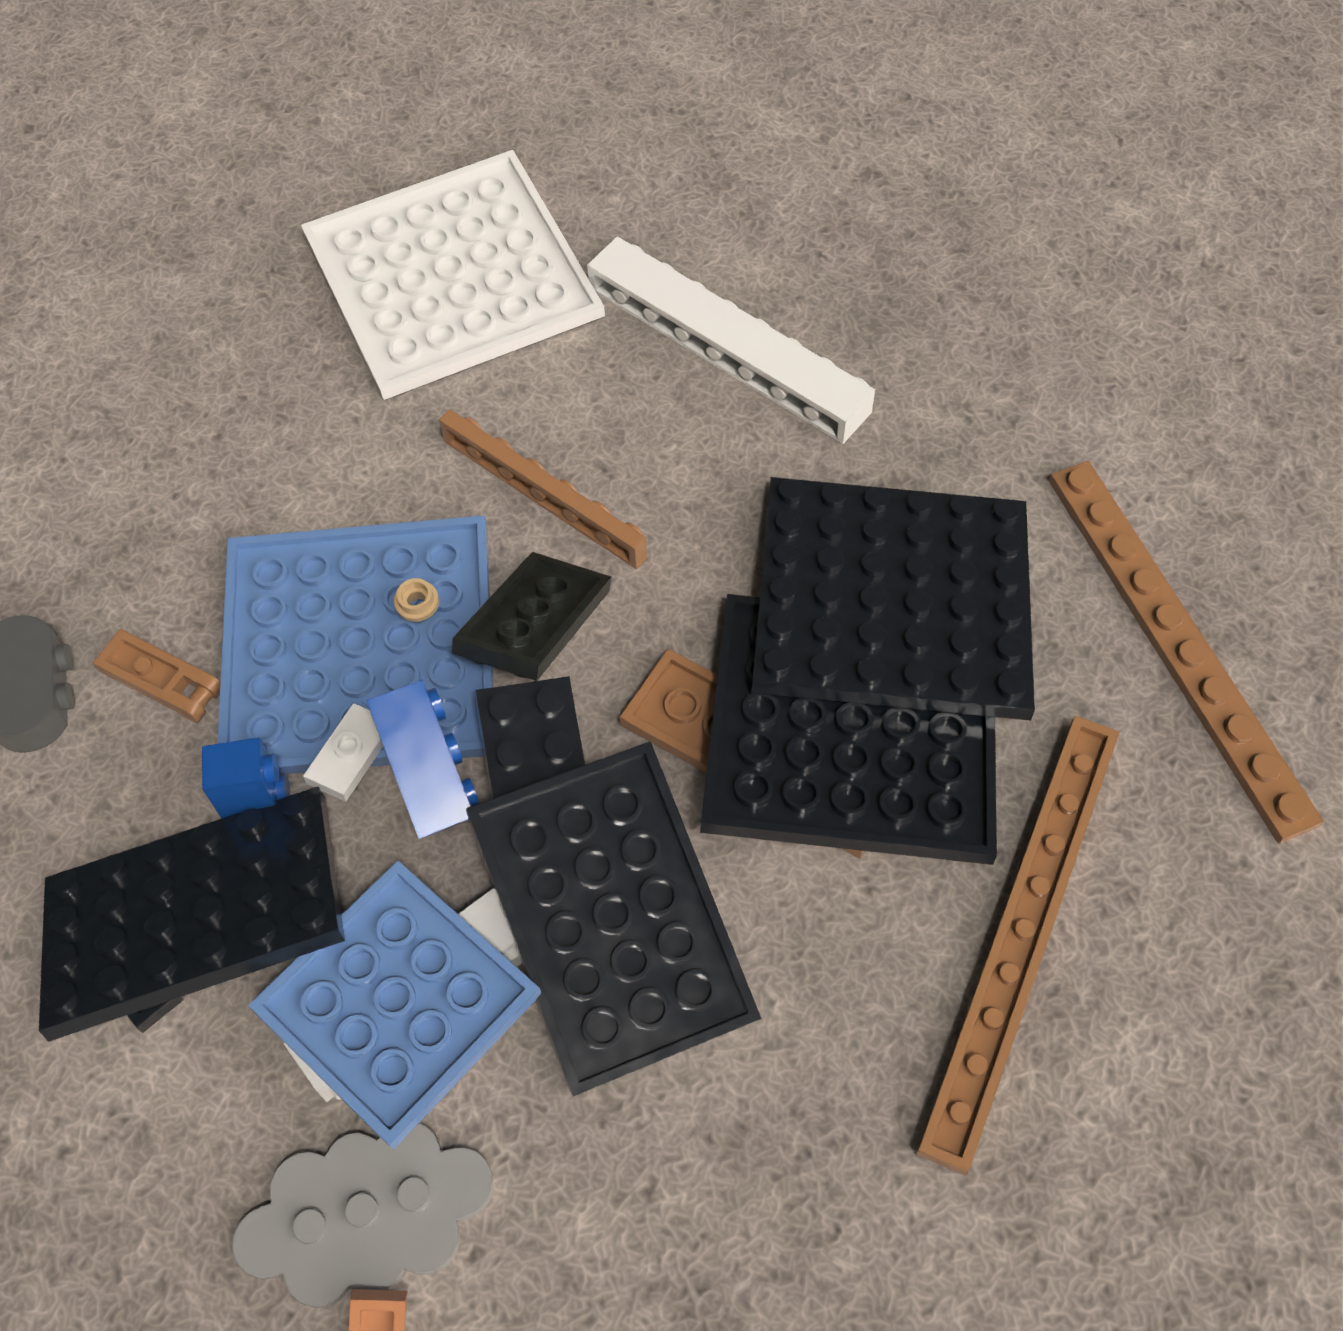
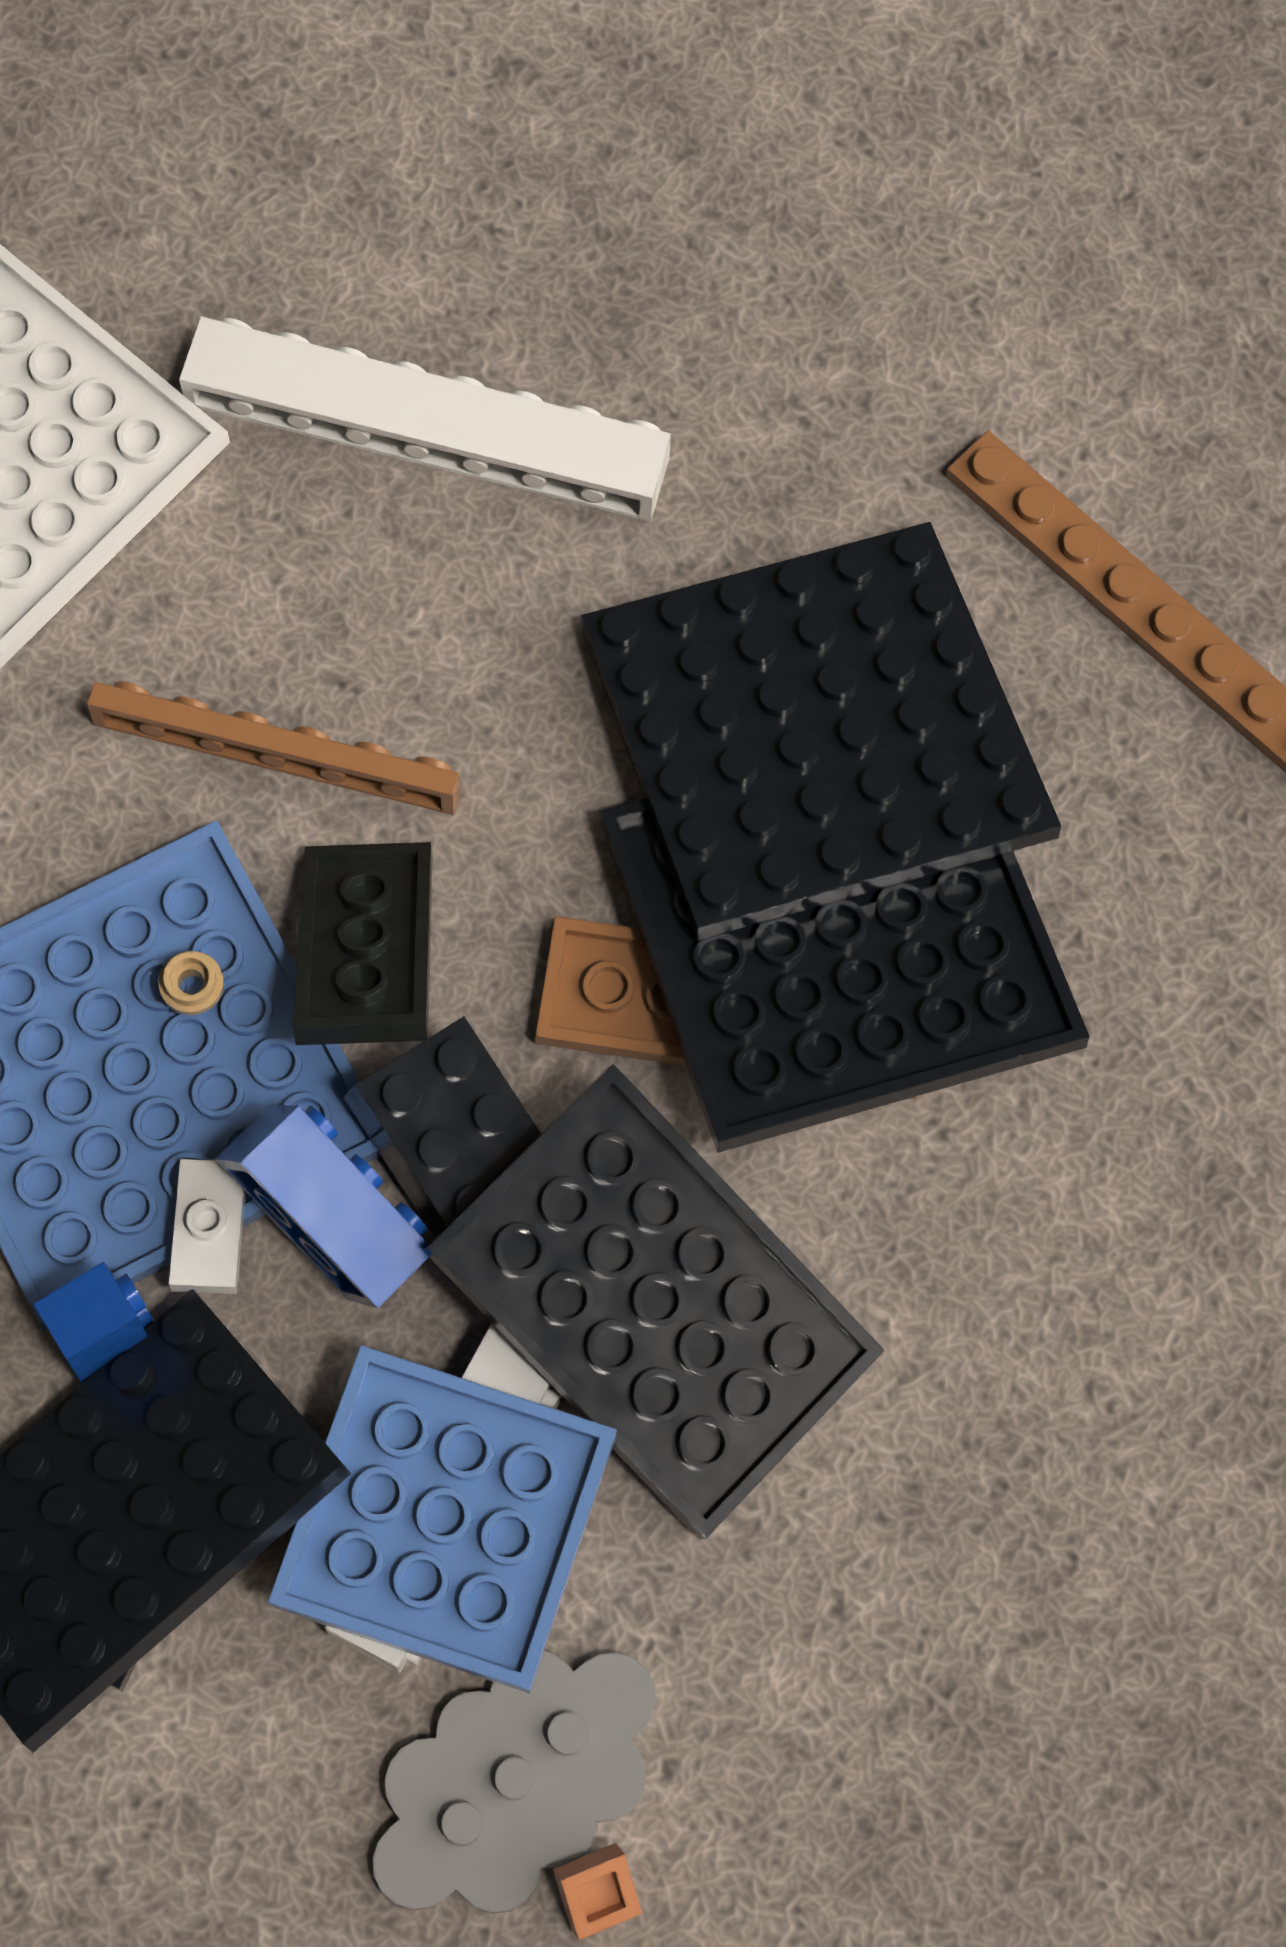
camera: 30 degrees left, 10 degrees up
(1017, 949) = (1149, 1123): medium nougat plate -> none

